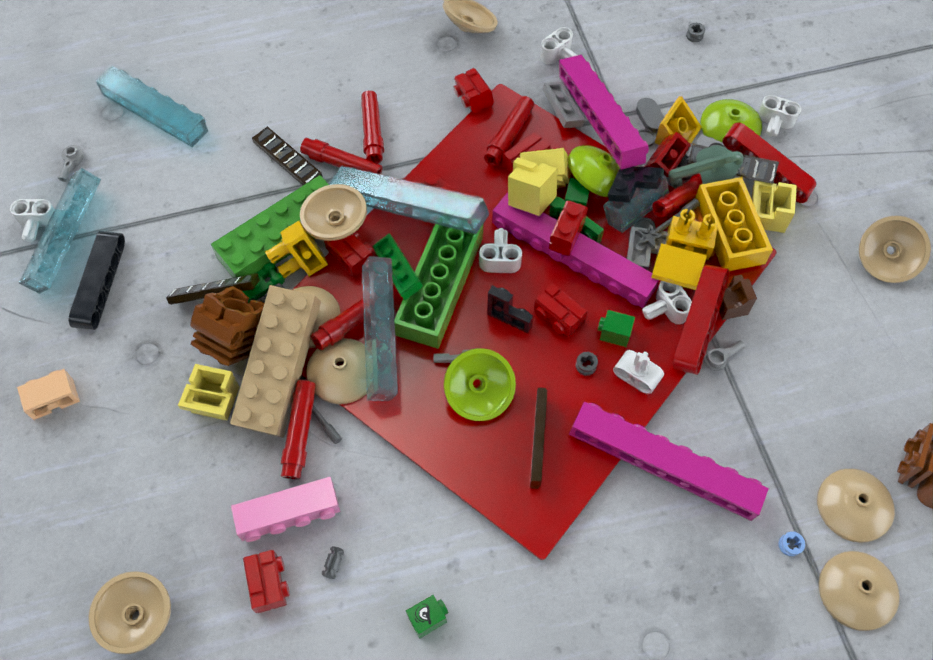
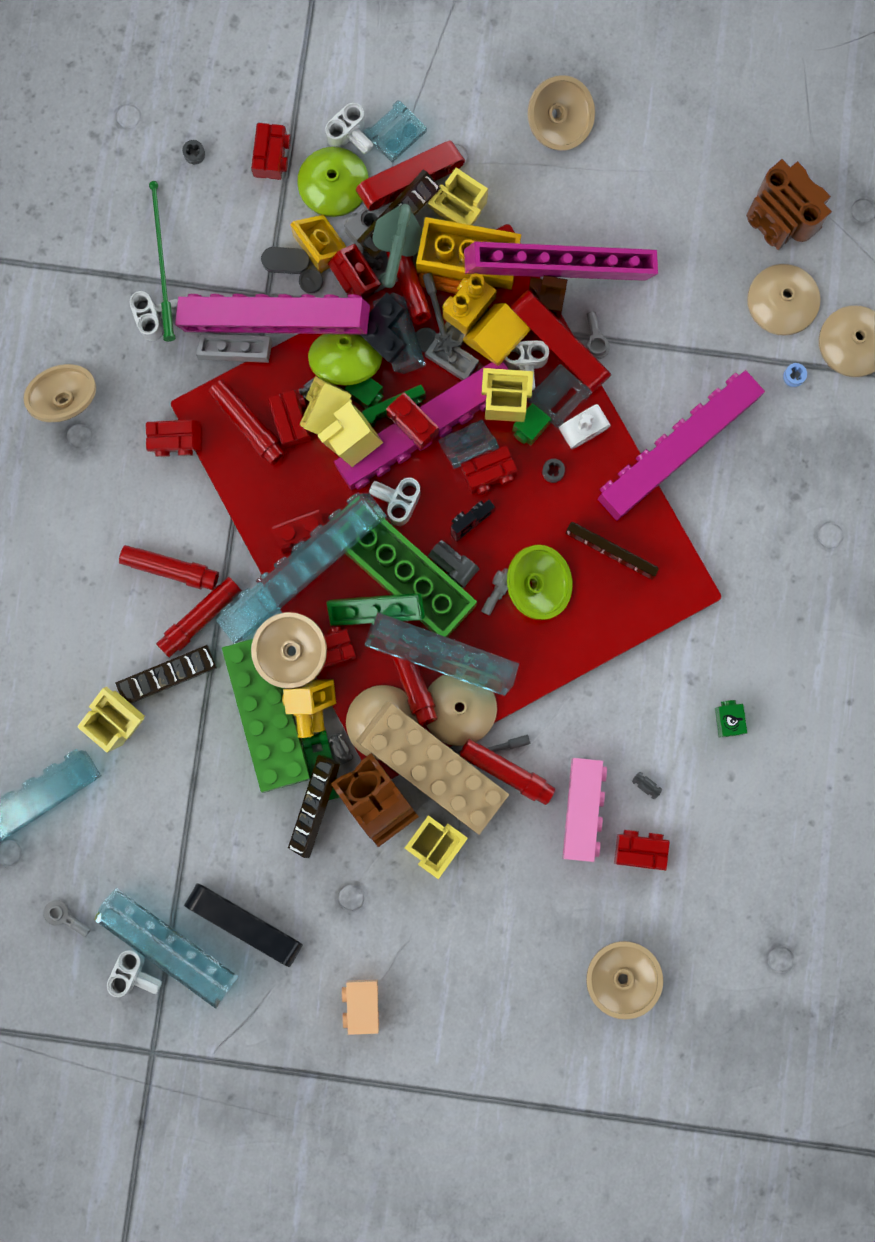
camera: 65 degrees left, 20 degrees up
(232, 128) = (110, 720): none -> light yellow plate
(464, 319) = (457, 567): none -> dark grey piece
(570, 49) = (165, 305): none -> green piece
(578, 287) = (468, 443): none -> clear light blue plate
(628, 286) = (506, 393): none -> light yellow plate
(657, 337) = (554, 389): none -> clear light blue plate
(726, 73) = (269, 151): none -> red brick
(770, 288) = (560, 261): none -> dark pink brick
(798, 147) = (400, 136): none -> clear light blue plate

